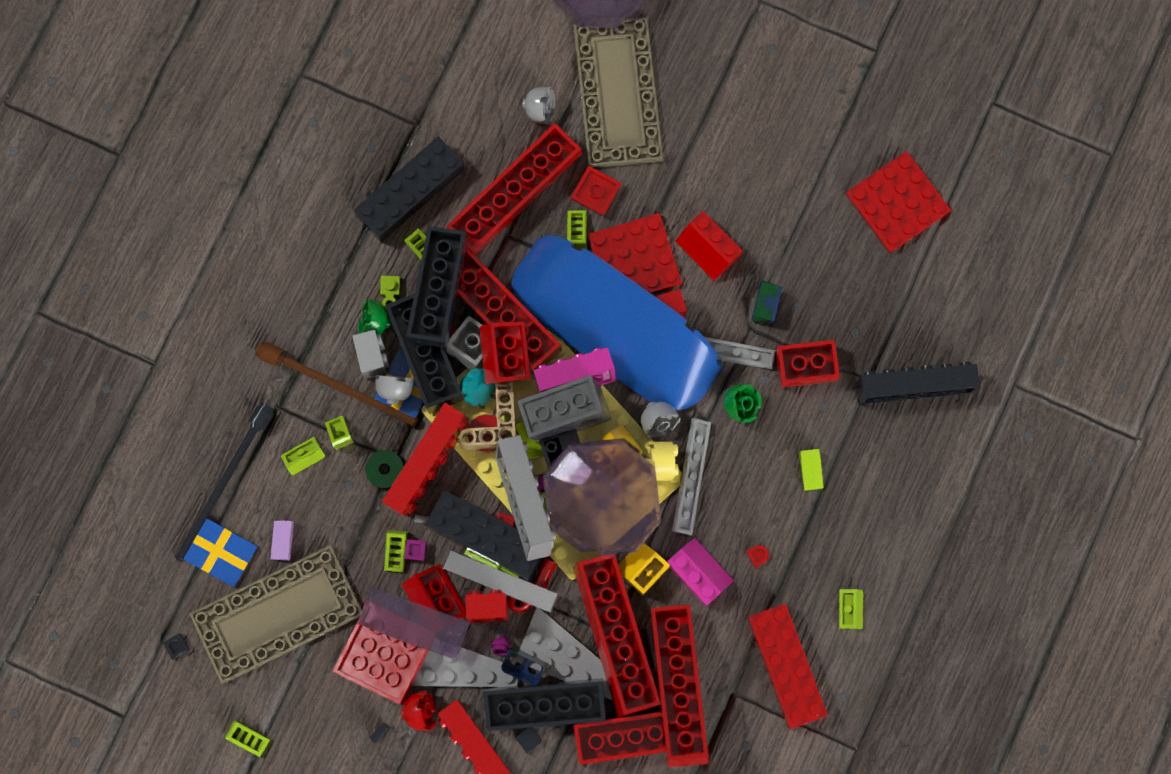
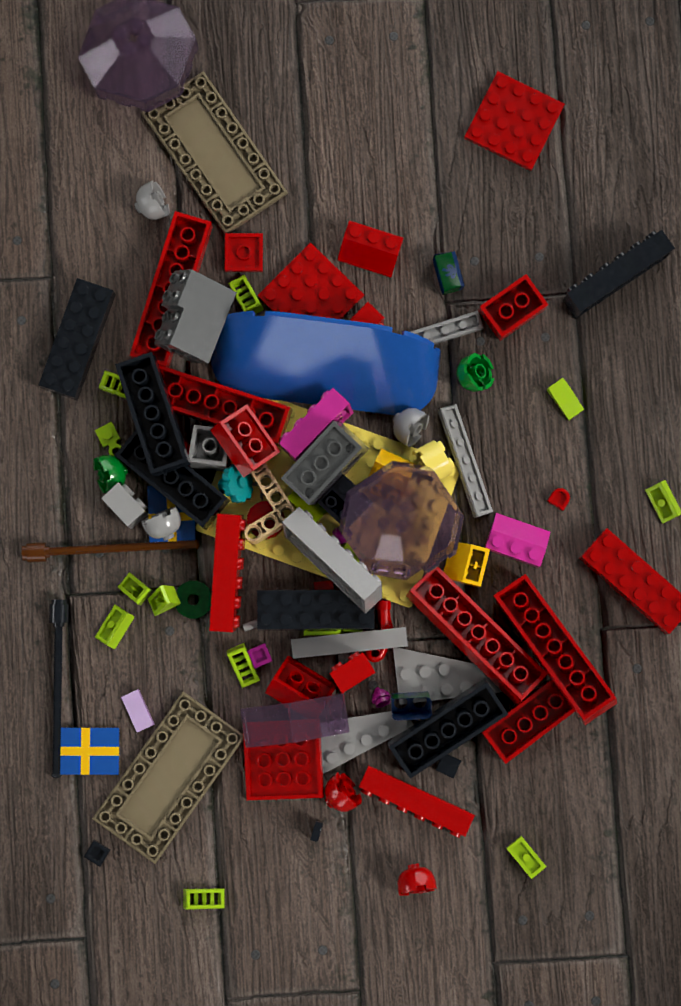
camera: 30 degrees left, 5 degrees up
(358, 454) = (163, 599): none -> lime slope
(520, 221) = (193, 315): none -> dark grey piece

